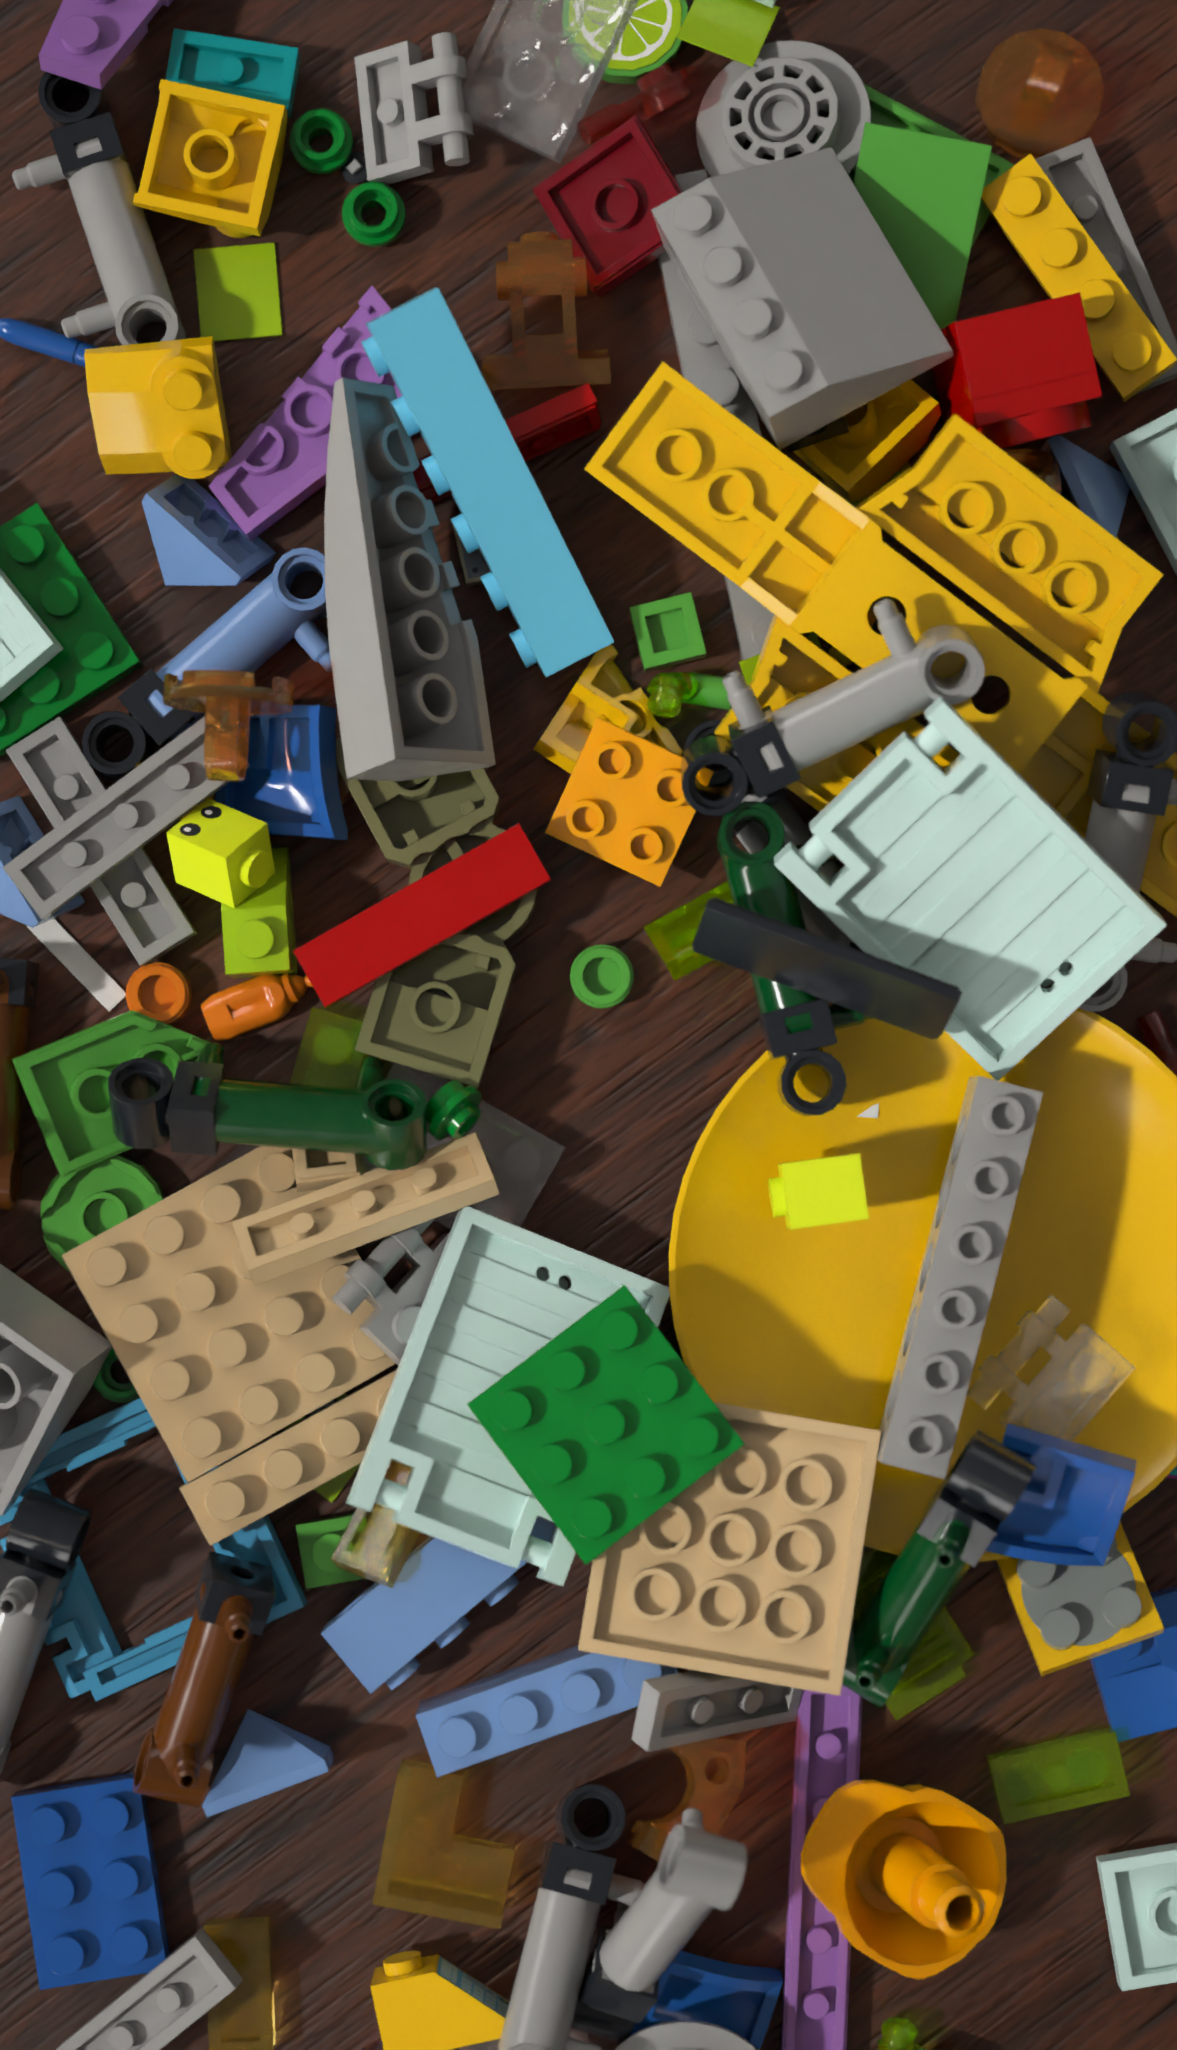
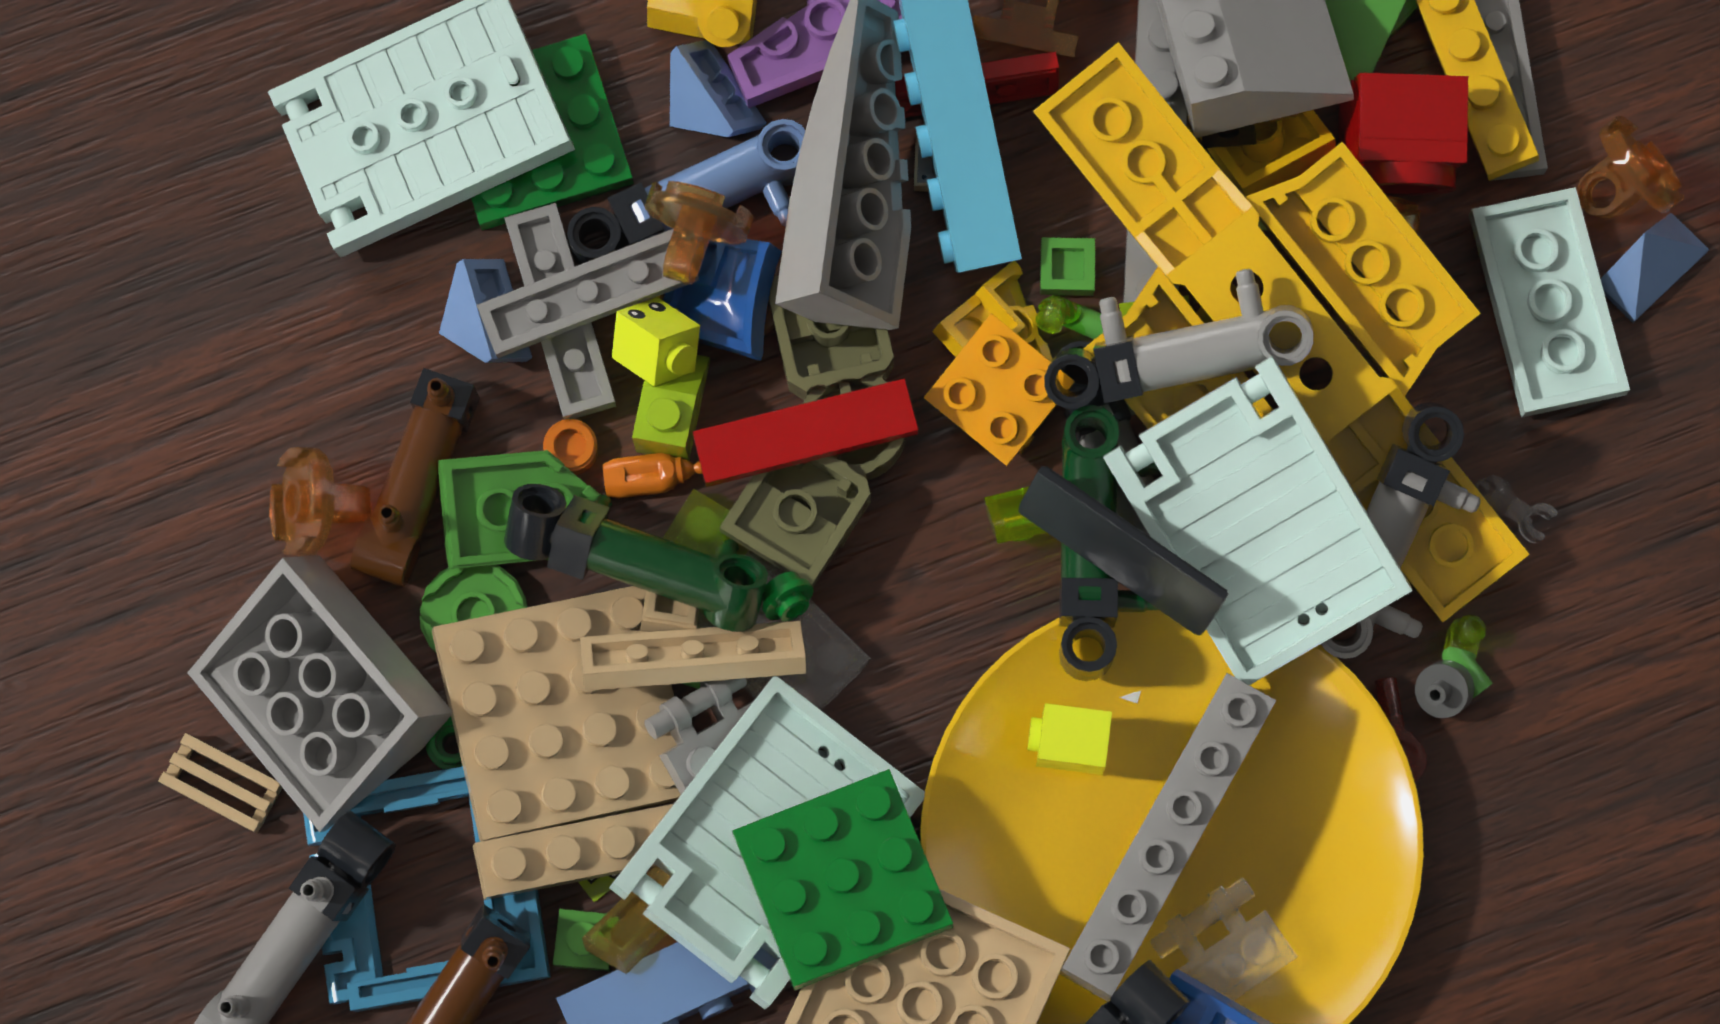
camera: 15 degrees right, 10 degrees down
(79, 963) = (512, 404): white sticker -> none
(601, 976) = (938, 529): bright green tile -> none
(1089, 483) = (1444, 235): medium blue slope -> none

